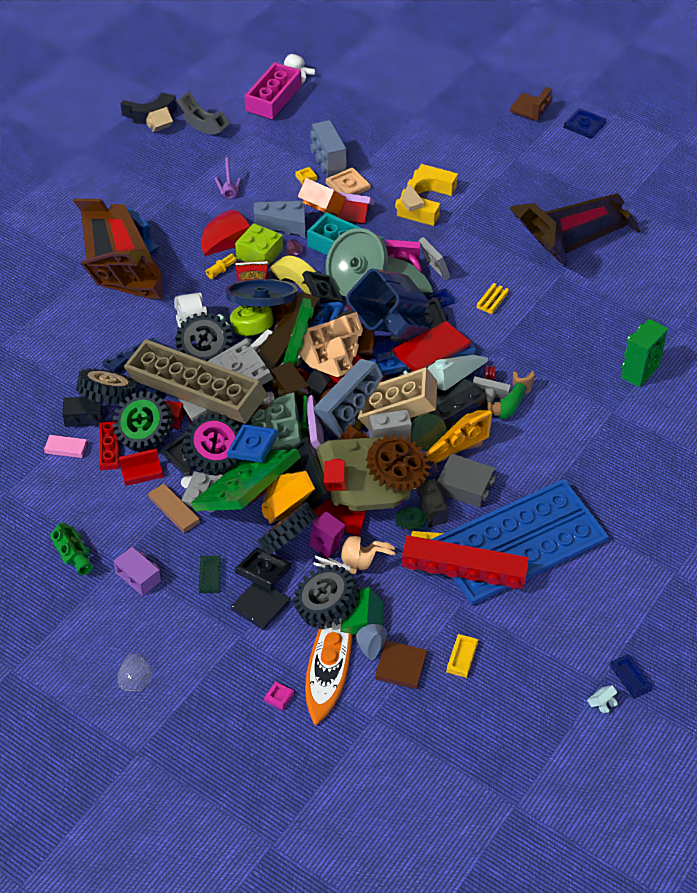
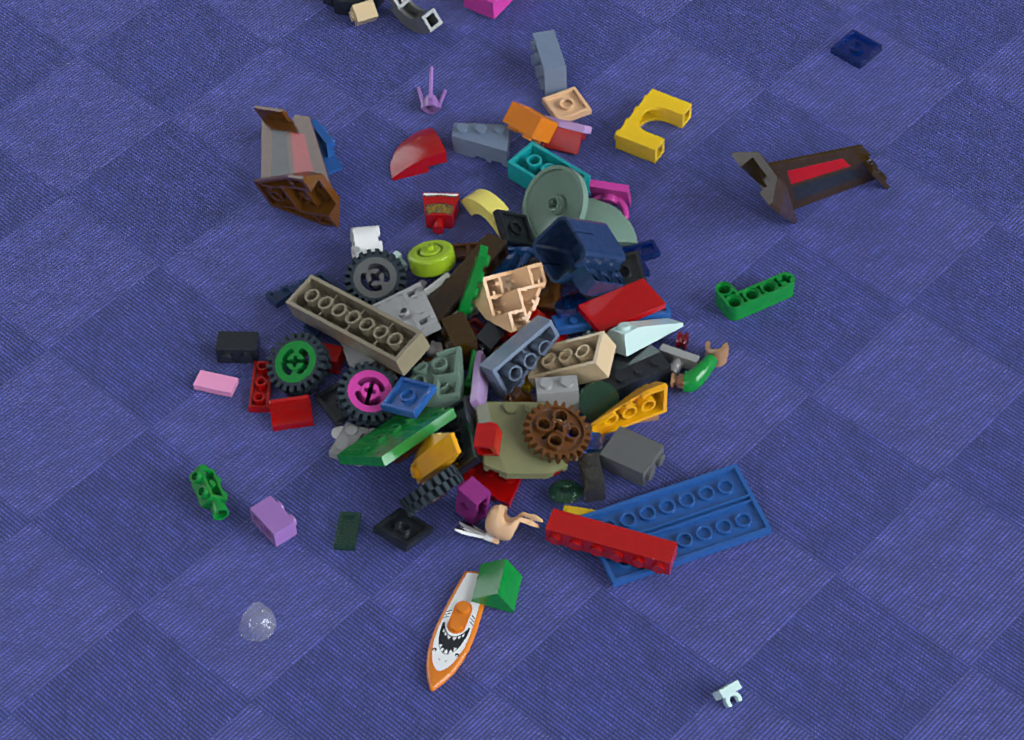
camera: 10 degrees right, 0 degrees up
(105, 386) = (264, 321): black wheel -> none
(173, 508) = (320, 459): medium nougat tile -> none
(220, 266) = (408, 194): yellow axle -> none
(259, 245) = (453, 173): lime brick -> none
(260, 605) = (394, 567): black tile -> none
(261, 292) = (444, 230): dark blue dish -> none
(279, 696) = (399, 659): dark pink tile -> none
(293, 247) = (492, 178): clear pink tile -> none
(306, 173) = (520, 92): yellow tile -> none
(332, 604) = (456, 556): black wheel -> none
(371, 640) = (501, 612): sand blue piece -> none
(401, 664) = (528, 640): reddish brown tile -> none
(411, 199) = (631, 131): tan tile -> none
(434, 258) = (644, 204): light grey tile -> none
(462, 655) = (593, 637): yellow tile -> none
(482, 301) = (701, 252): yellow tile -> none
(532, 106) = (798, 23): reddish brown bracket -> none
(535, 337) = (754, 298): none -> green beam
(631, 676) = (763, 674): clear blue tile -> none
(644, 352) = (853, 331): green brick -> none

